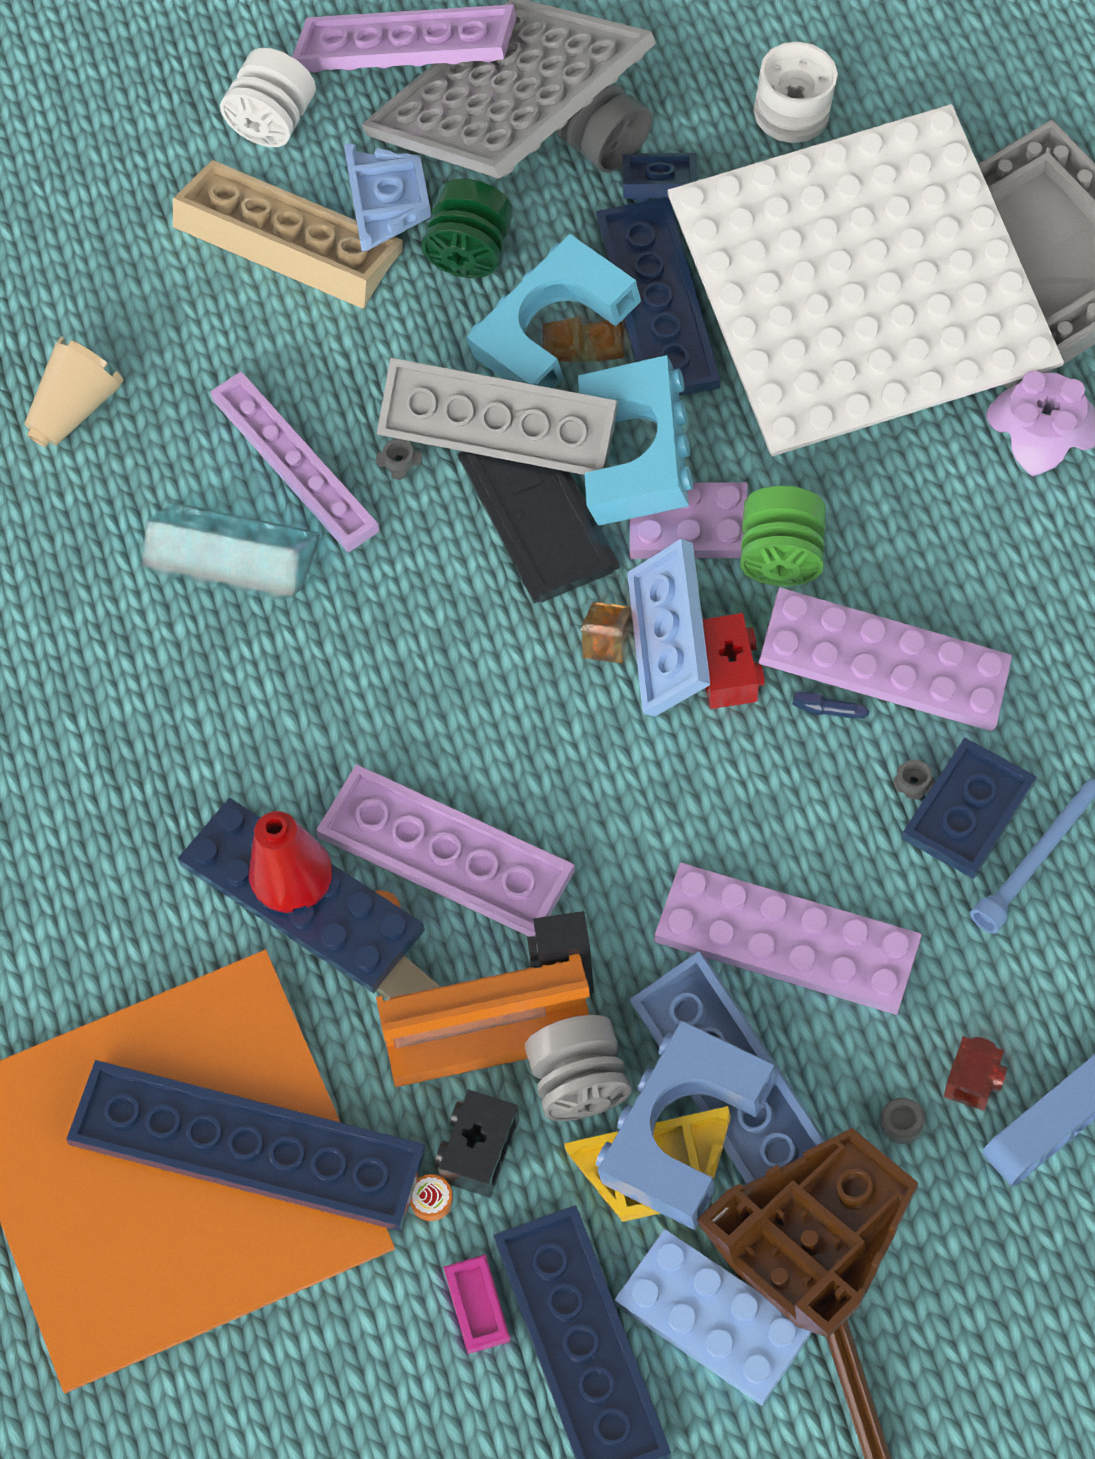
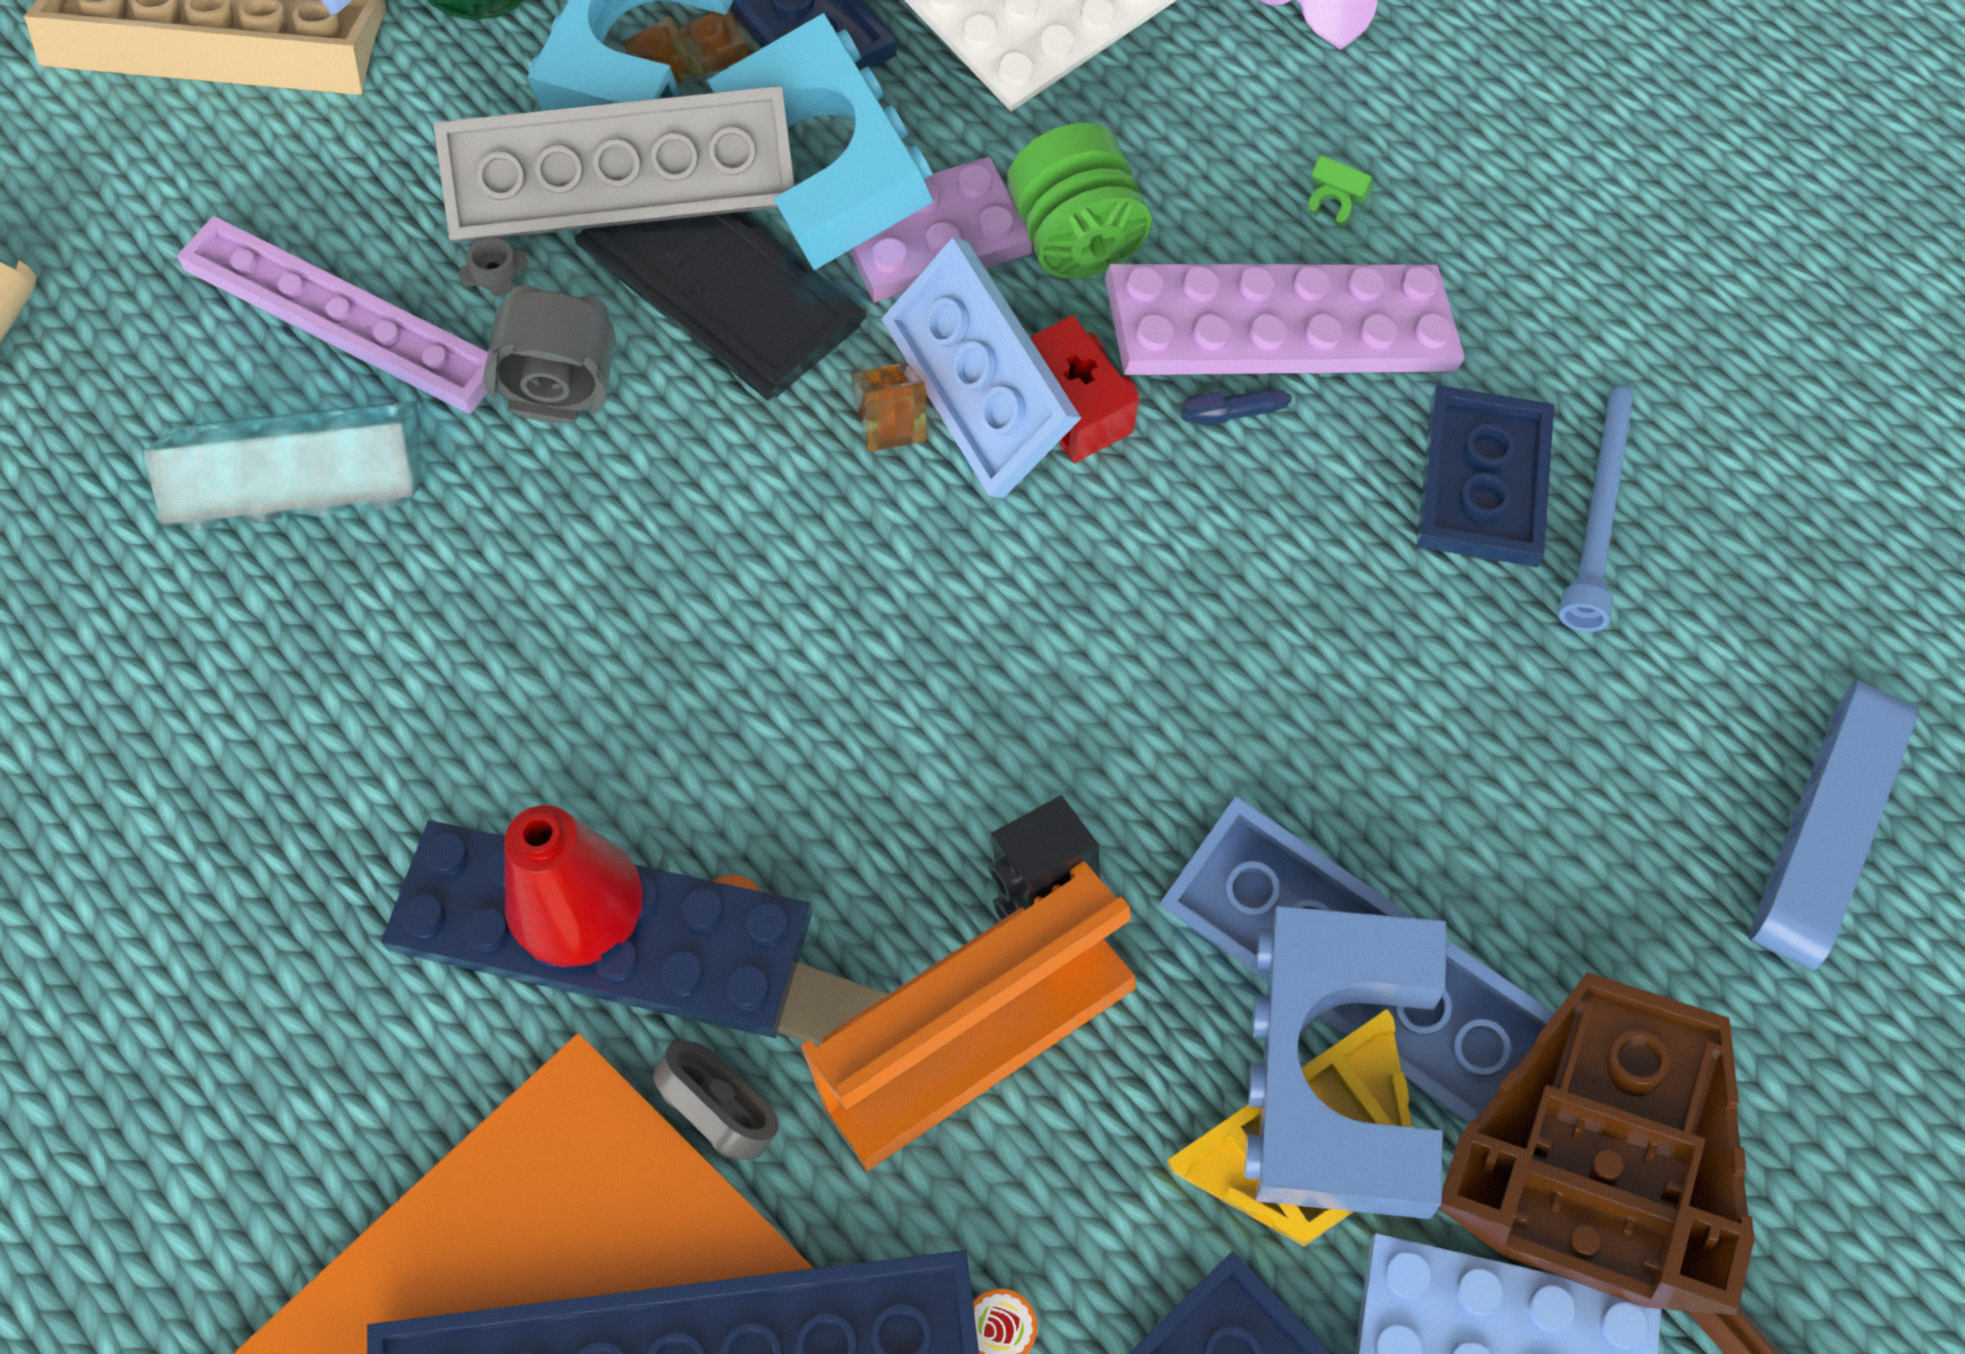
camera: 30 degrees left, 0 degrees up
(325, 1014) = (715, 1100): none -> dark grey plate
(406, 533) = (550, 354): none -> dark grey brick
(445, 850) = (792, 784): lavender plate -> none
(480, 1166) = (1046, 1169): black brick -> none
(577, 1067) = (1135, 1025): light grey wheel -> none
(788, 938) = (1333, 735): lavender plate -> none
(902, 1120) = (1617, 934): dark grey tile -> none
(913, 769) = (1397, 450): dark grey plate -> none
(973, 577) = (1339, 183): none -> bright green tile
(975, 1072) = (1686, 828): clear red brick -> none

